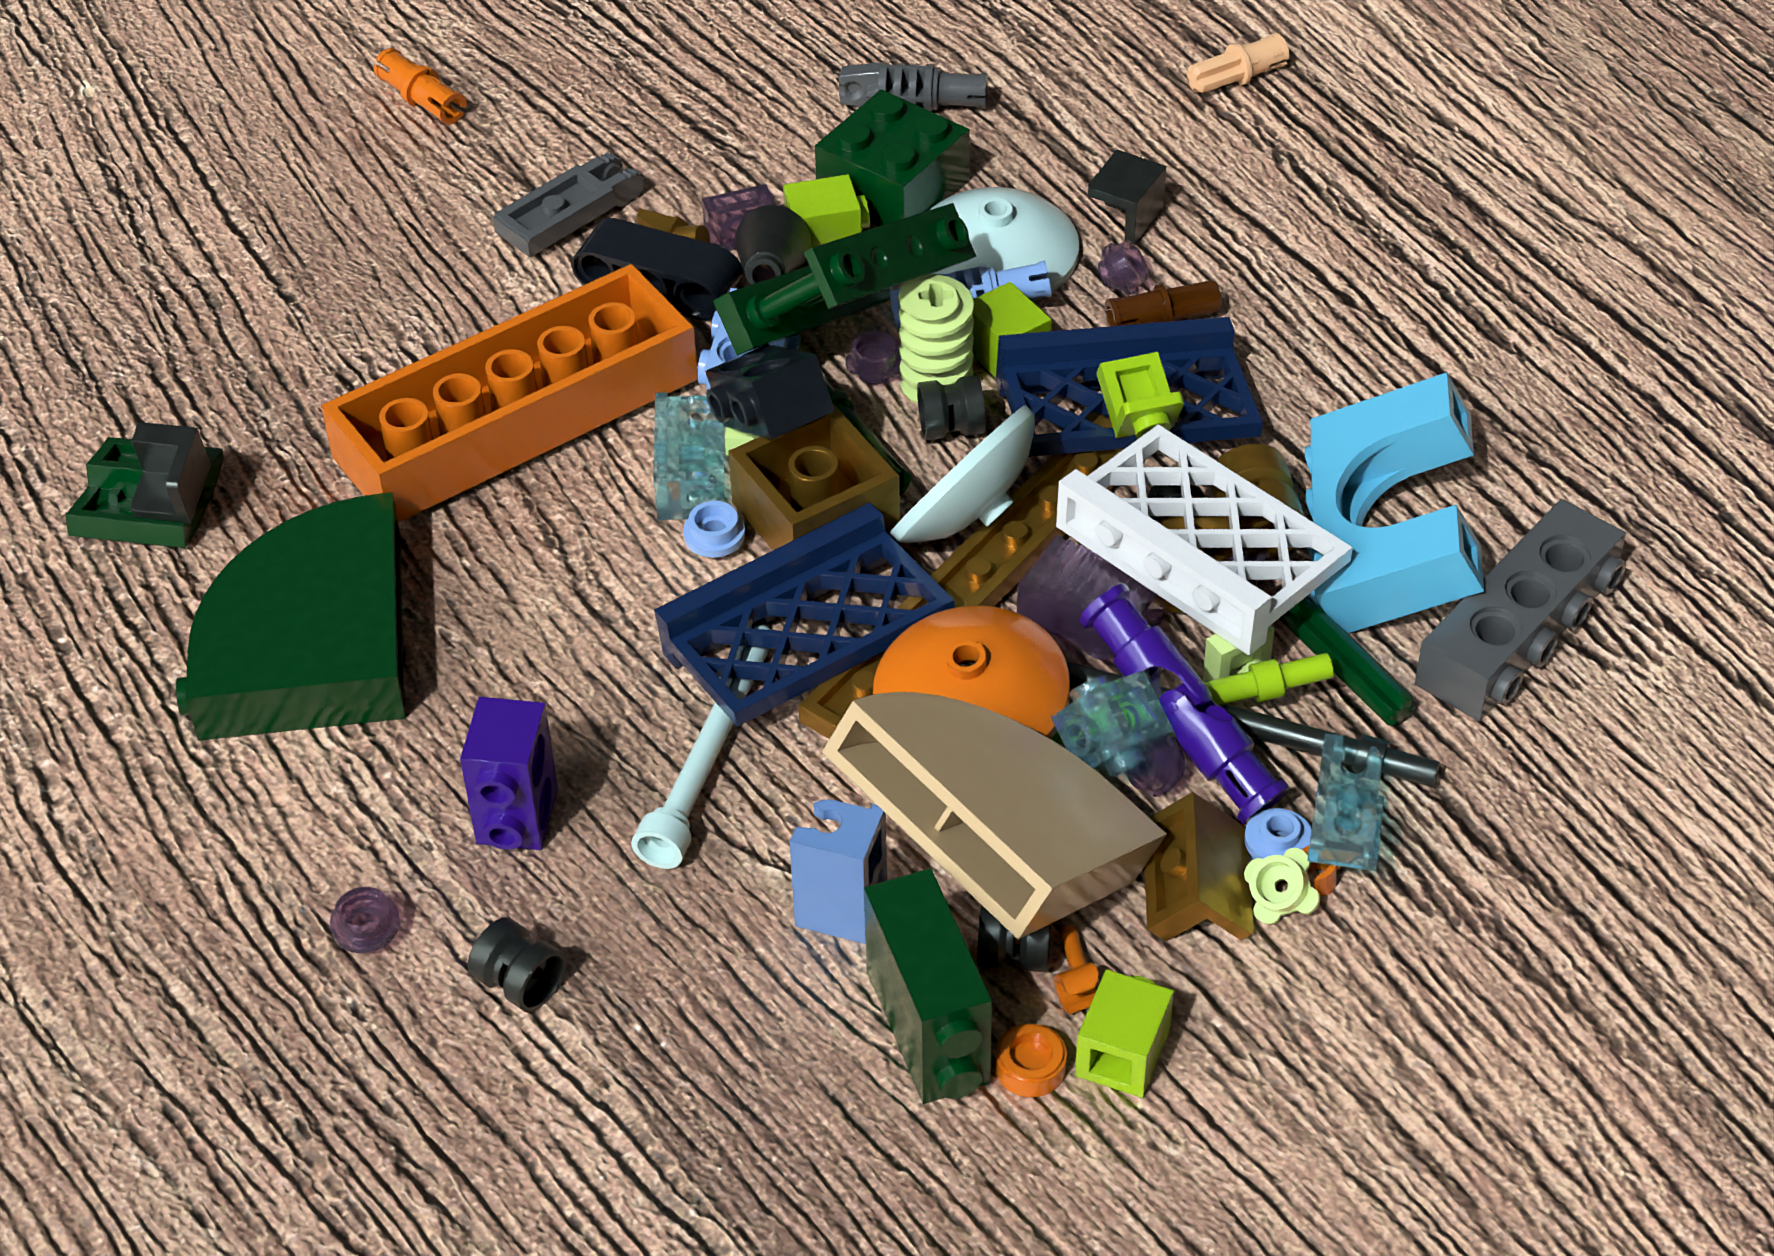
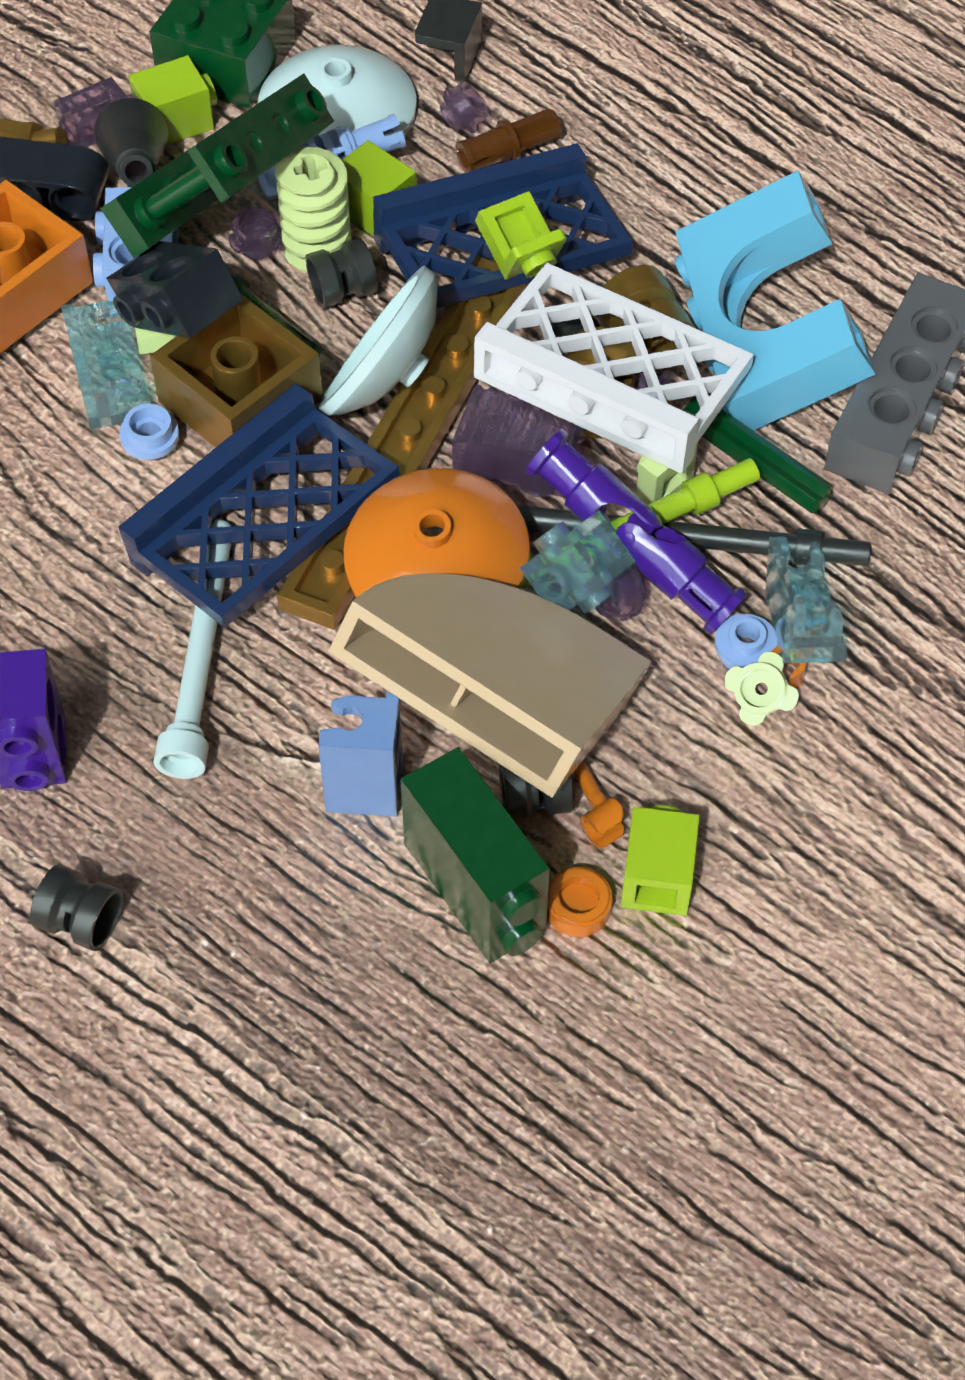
camera: 15 degrees left, 10 degrees up
(1198, 871) = (683, 689): pearl gold panel -> none

